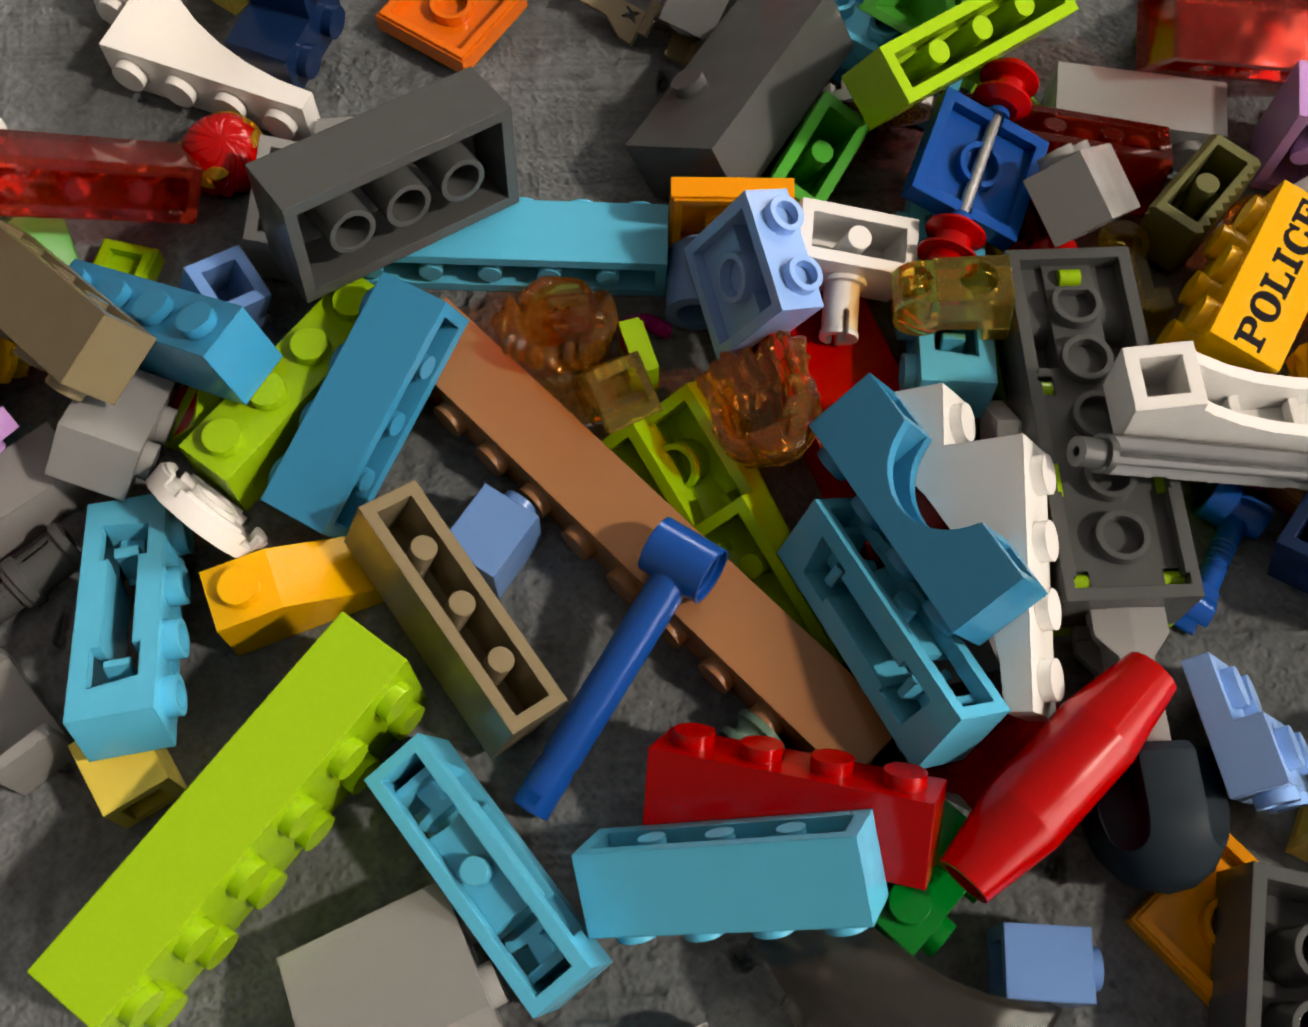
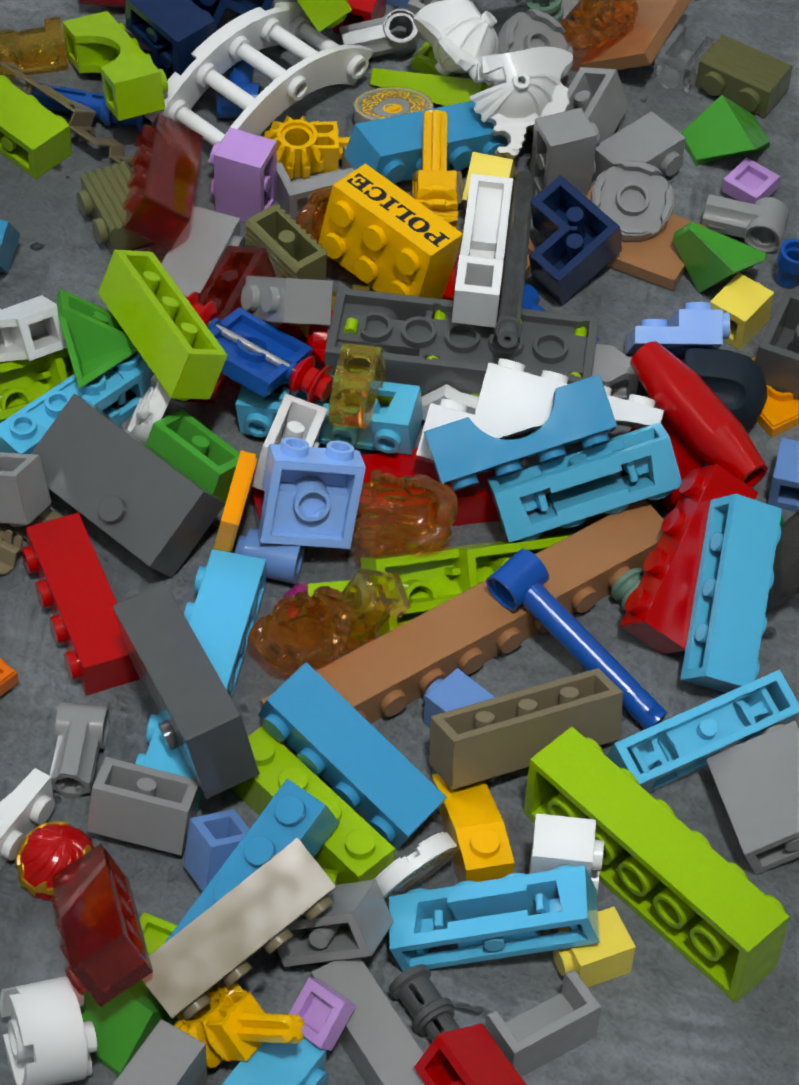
camera: 80 degrees left, 15 degrees down
(220, 685) = (566, 842): none -> white brick
(590, 96) = (80, 603): none -> red brick

